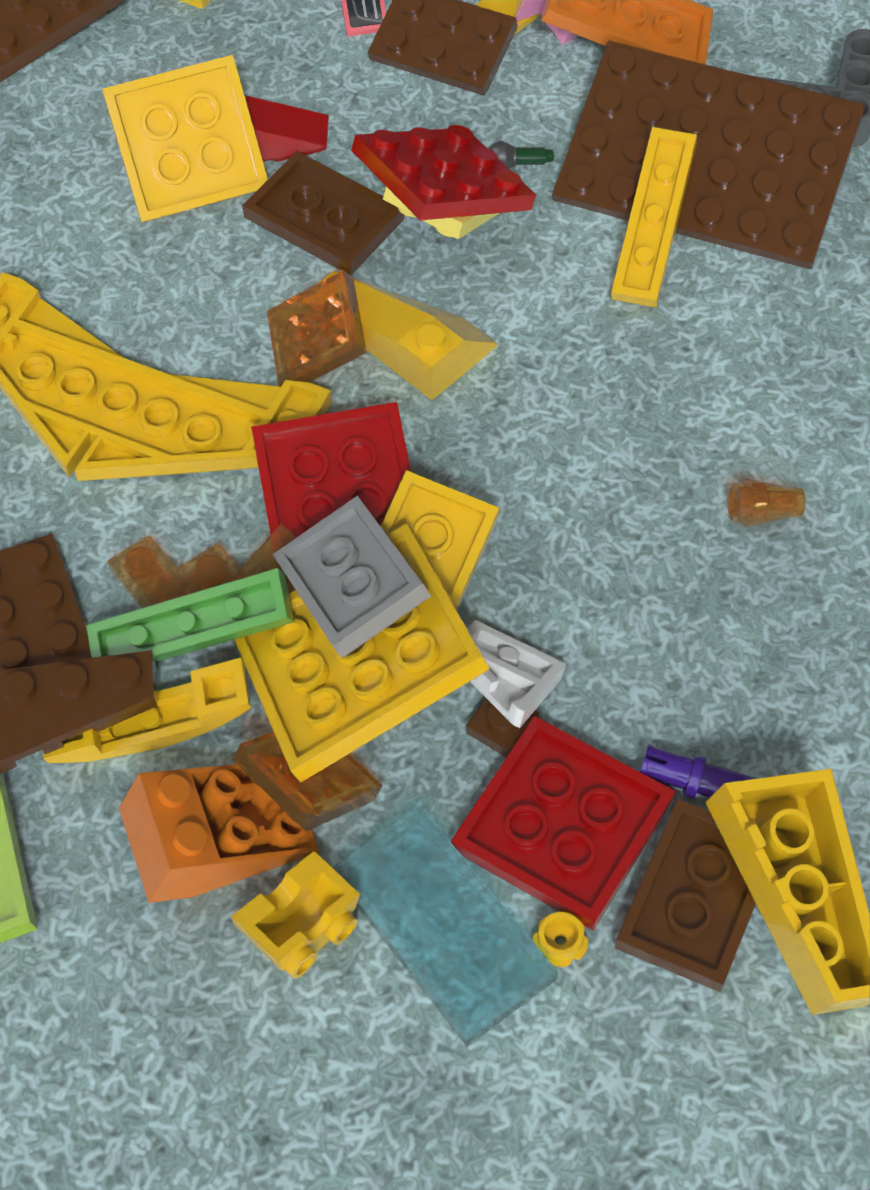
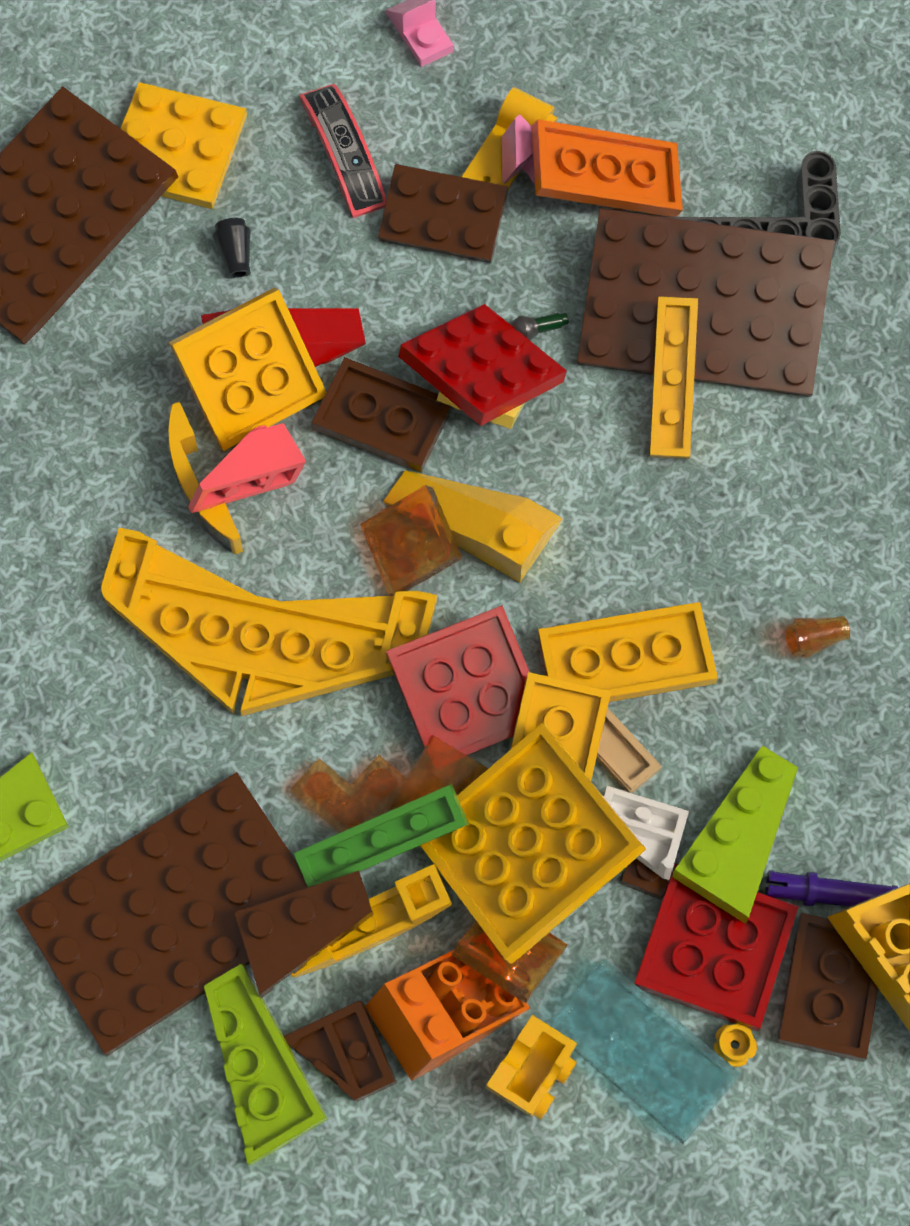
camera: 15 degrees left, 10 degrees up
(82, 855) = (346, 1051): none -> reddish brown wing
(93, 209) = (215, 520): none -> yellow slope
(155, 232) = (258, 464): none -> coral slope
(212, 33) = (233, 243): none -> black cone
(351, 576) = (510, 782): light grey plate -> none
(504, 591) = (625, 756): none -> tan tile
(546, 486) = (633, 652): none -> yellow plate
(613, 706) = (737, 841): none -> lime wing

